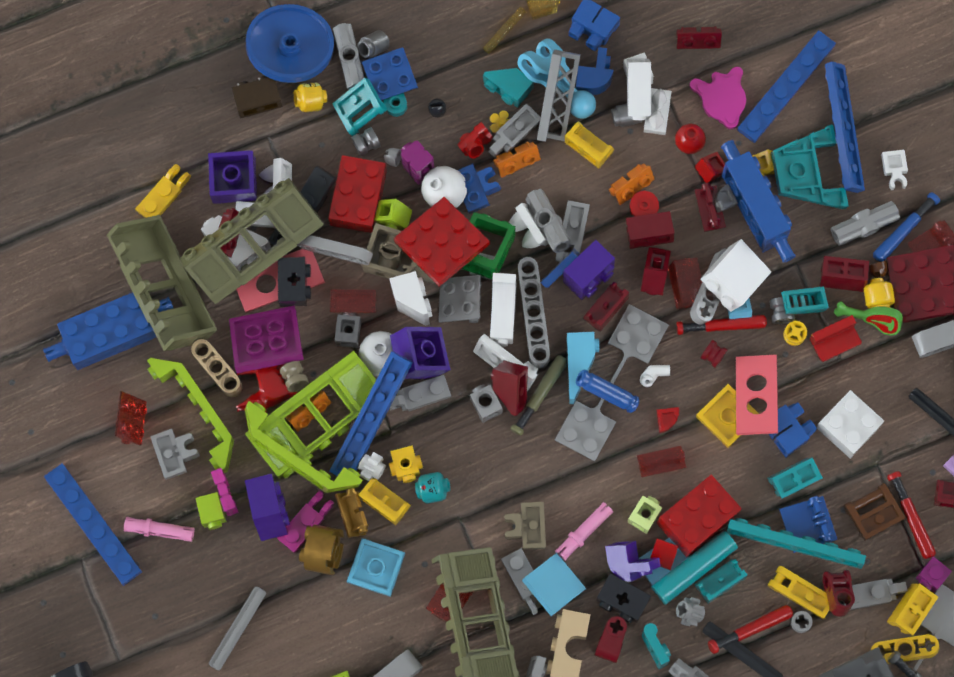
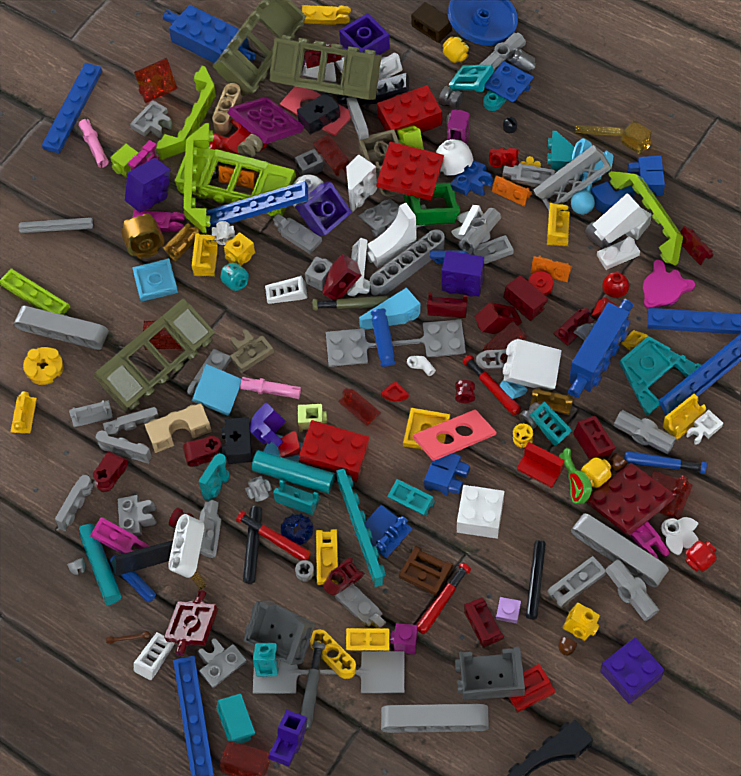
camera: 55 degrees right, 15 degrees down
(489, 430) = (285, 285): none -> white slope
(609, 41) = (672, 247): none -> lime slope
(741, 601) = (301, 536): none -> clear blue gear
(777, 282) = (557, 402): none -> pearl gold hinge
(873, 178) = (683, 417): none -> yellow hinge

